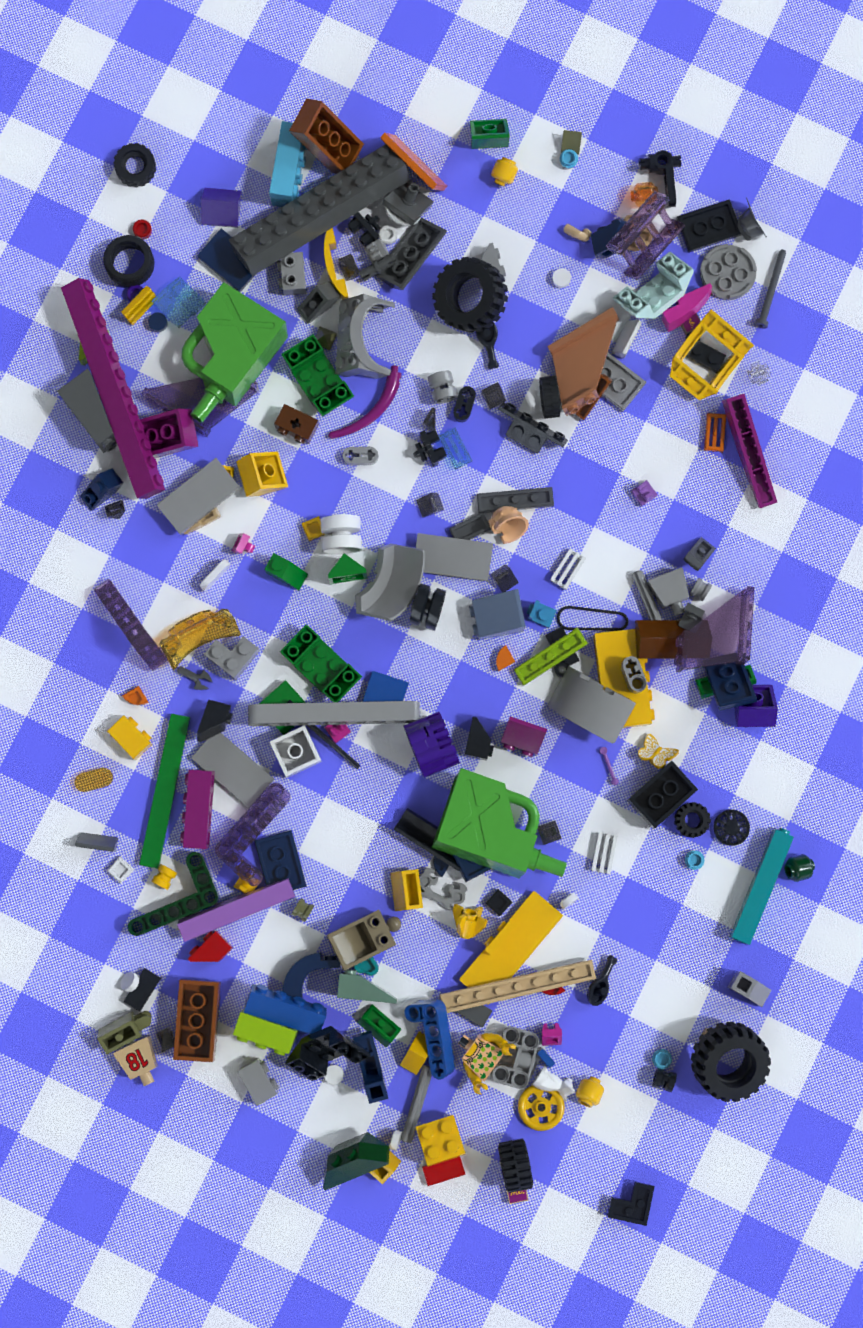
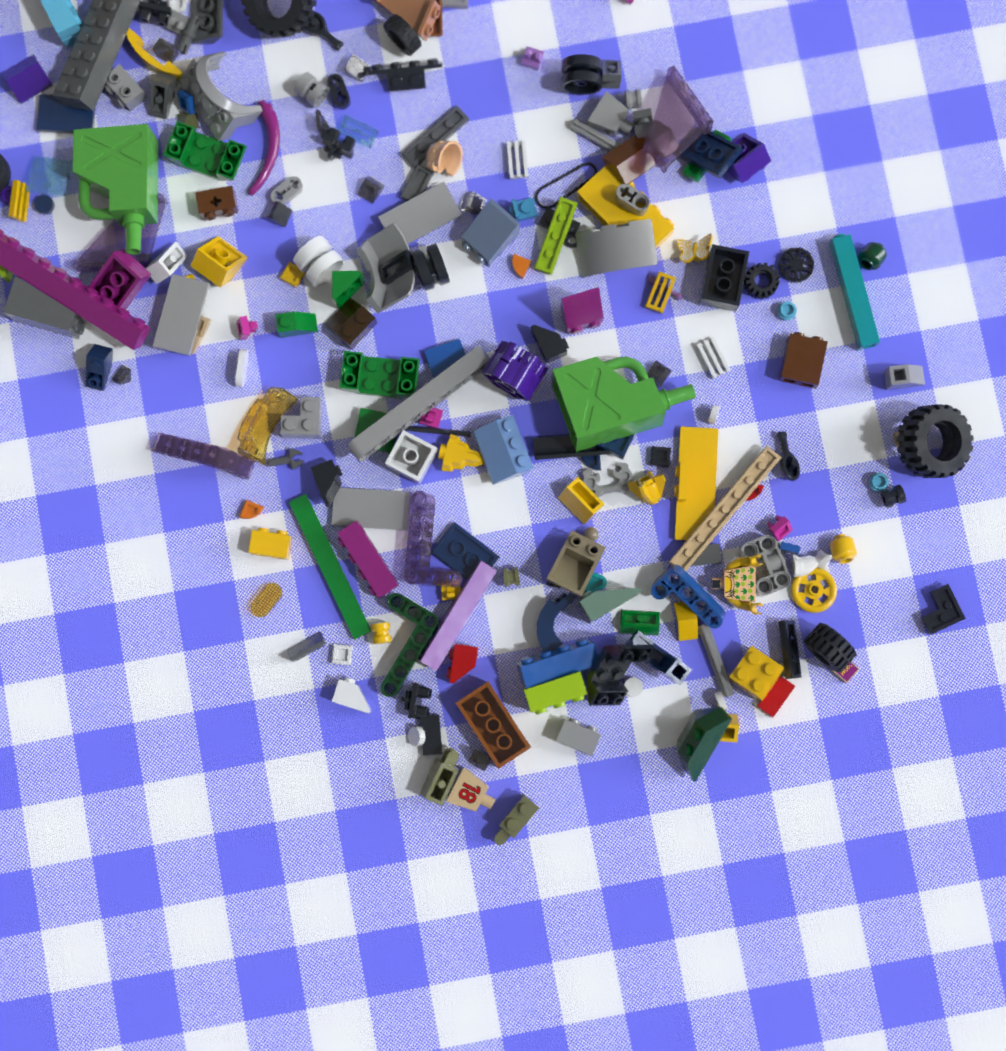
camera: 30 degrees left, 0 degrees up
(102, 909) = (350, 695): none -> white slope
(149, 951) = (414, 700): none -> black hips
(158, 1110) = (516, 819): none -> olive brick
(218, 444) = (166, 263): none -> white slope
(330, 603) = (351, 323): none -> dark brown slope
(333, 322) = (186, 102): none -> blue tile
(335, 777) = (458, 455): none -> yellow rock
(340, 471) = (280, 214): none -> black tile
(373, 801) = (503, 450): none -> medium blue slope
(400, 587) = (396, 267): none -> black tile
(483, 1141) = (789, 649): none -> black tile
(588, 775) = (666, 277): none -> yellow tile
(672, 538) = (581, 74): none -> black wheel
(676, 911) = (803, 360): none -> reddish brown brick

